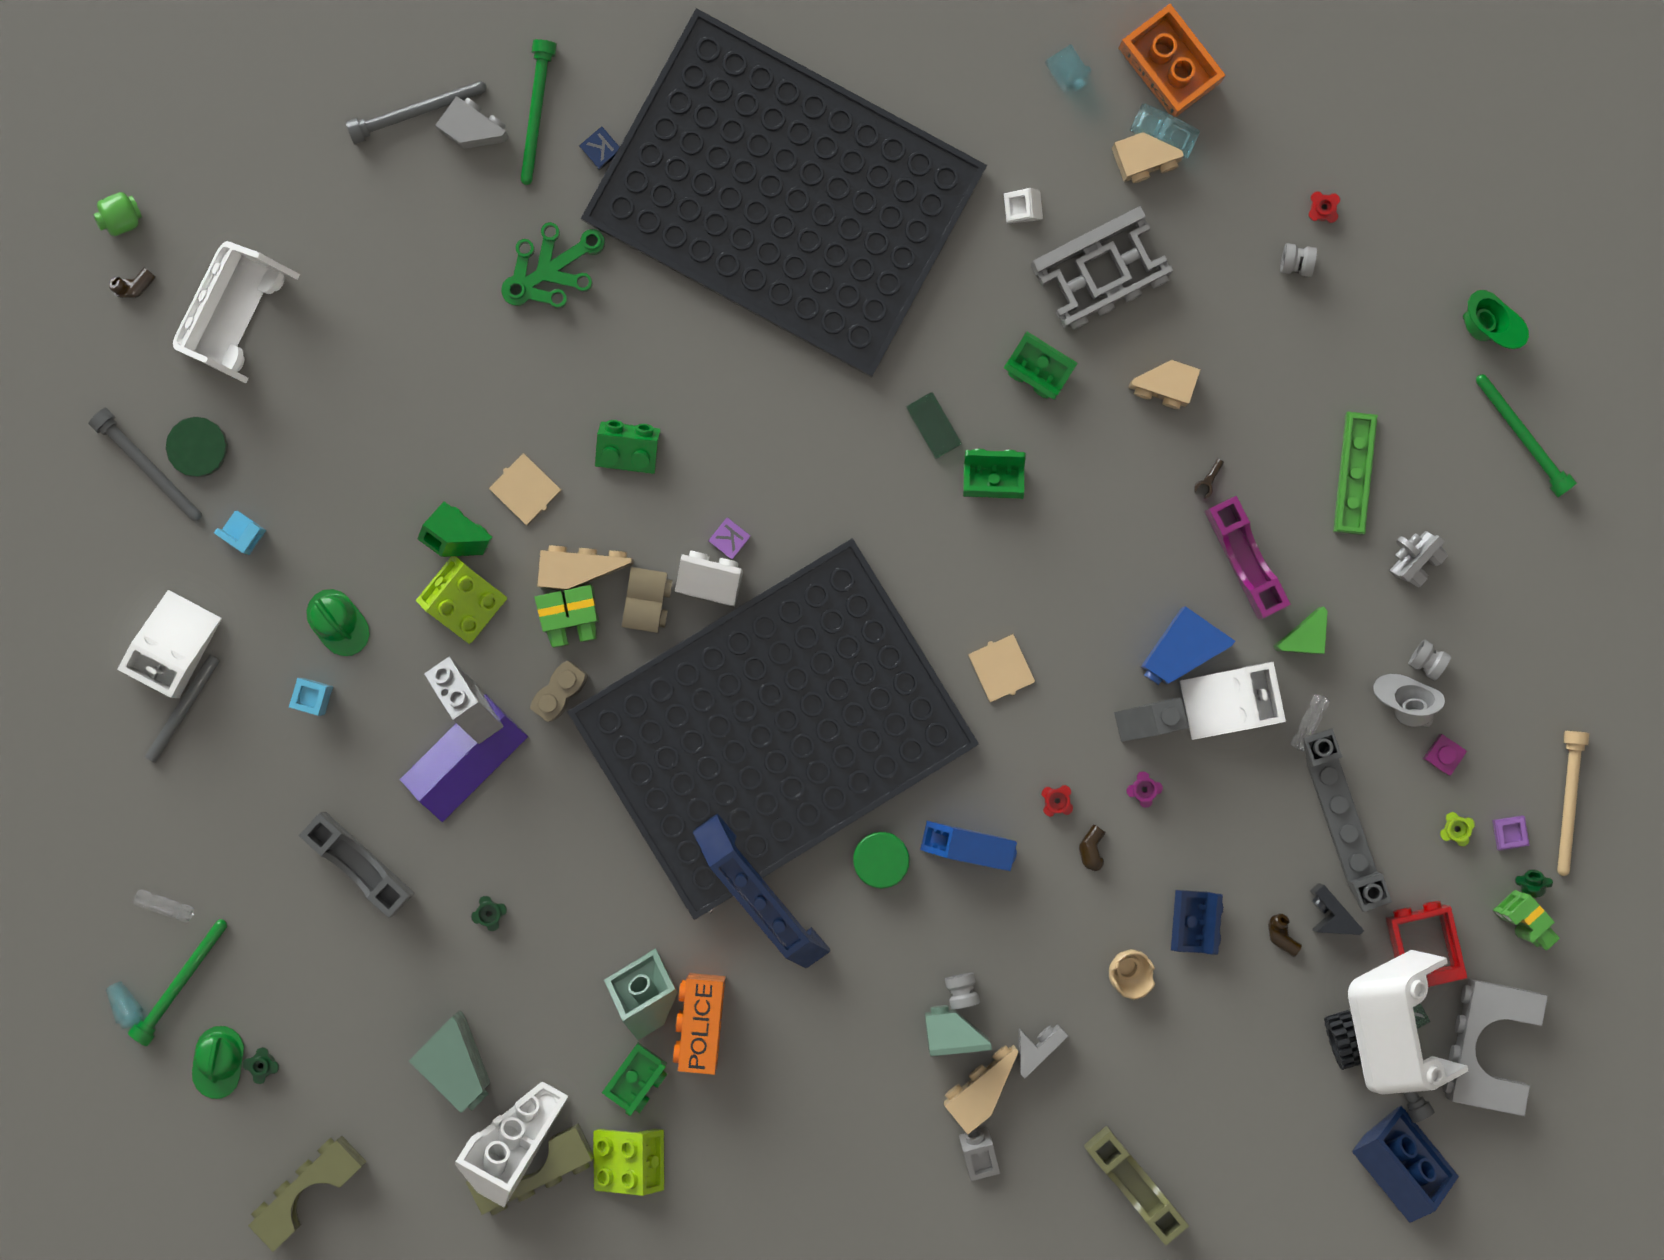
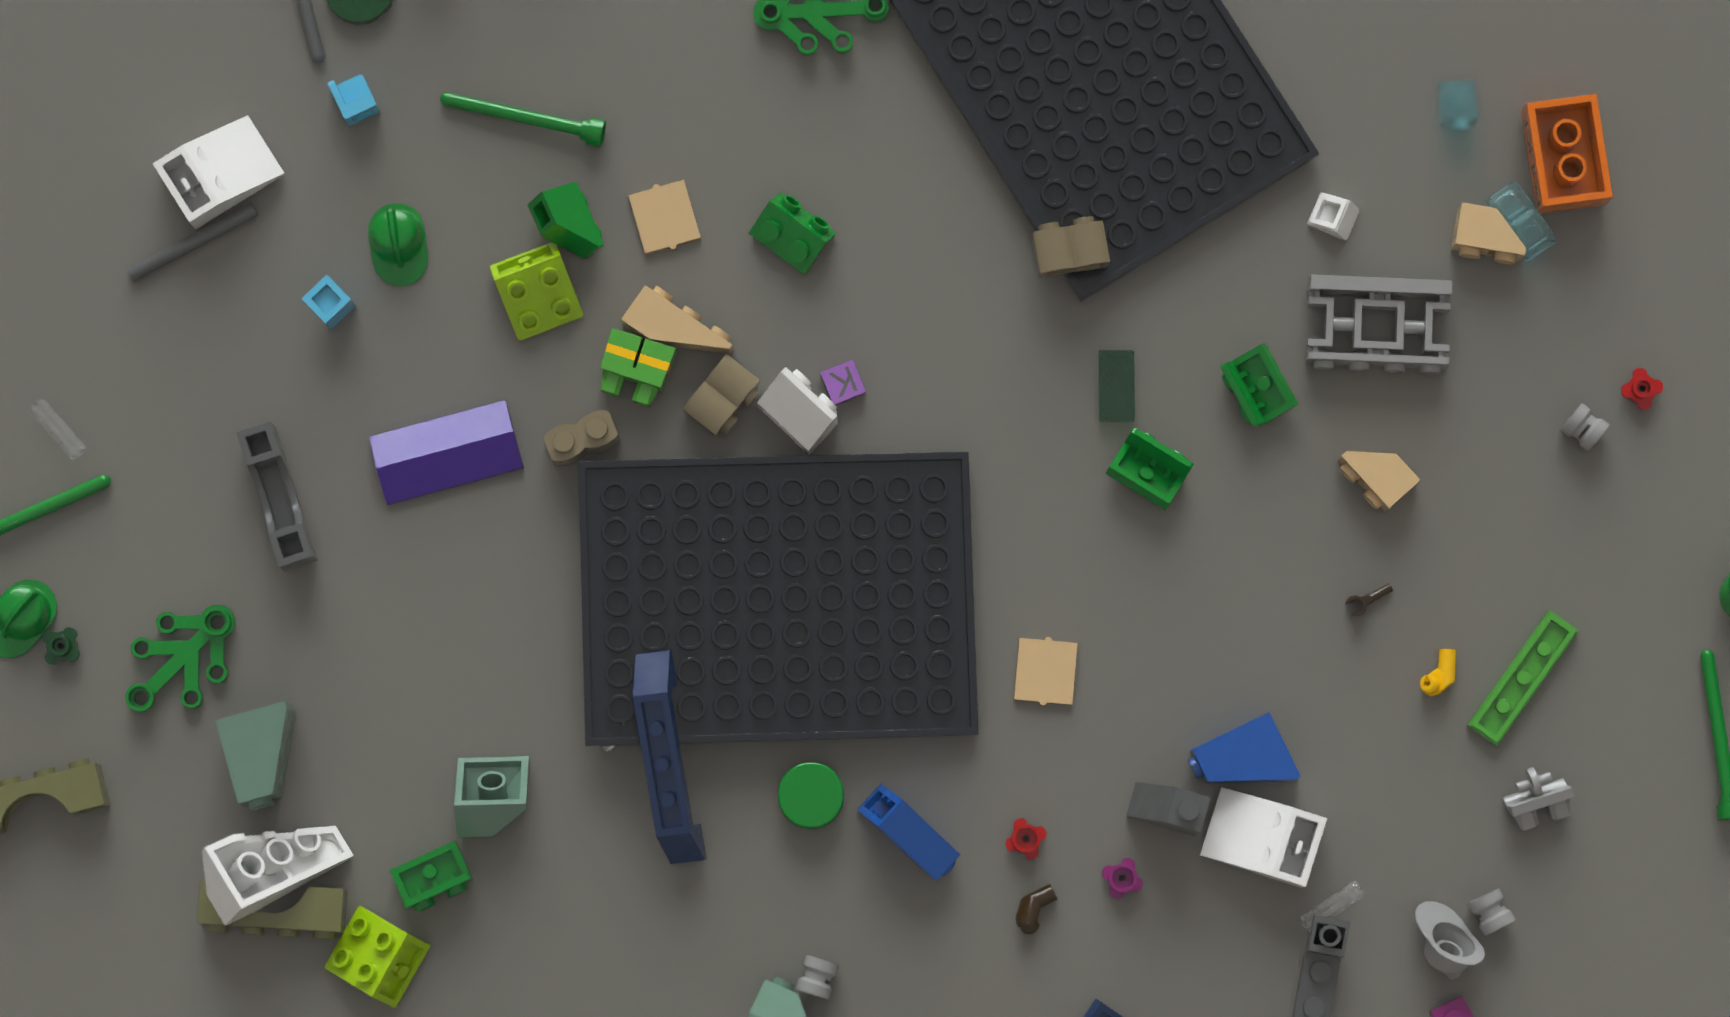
camera: 30 degrees right, 5 degrees down
(357, 1020) = (185, 655): none -> green plant
(432, 456) = (589, 130): none -> green piece
(463, 700) = (481, 390): light grey window -> none
(481, 917) = (377, 633): dark green plate -> none
(699, 1023) = (530, 854): orange brick -> none
(842, 342) = (1070, 247): none -> dark tan brick
(1252, 571) = (1359, 699): magenta arch -> none
(1296, 505) = (1442, 676): none -> yellow arm
(1307, 636) = (1377, 816): bright green slope -> none

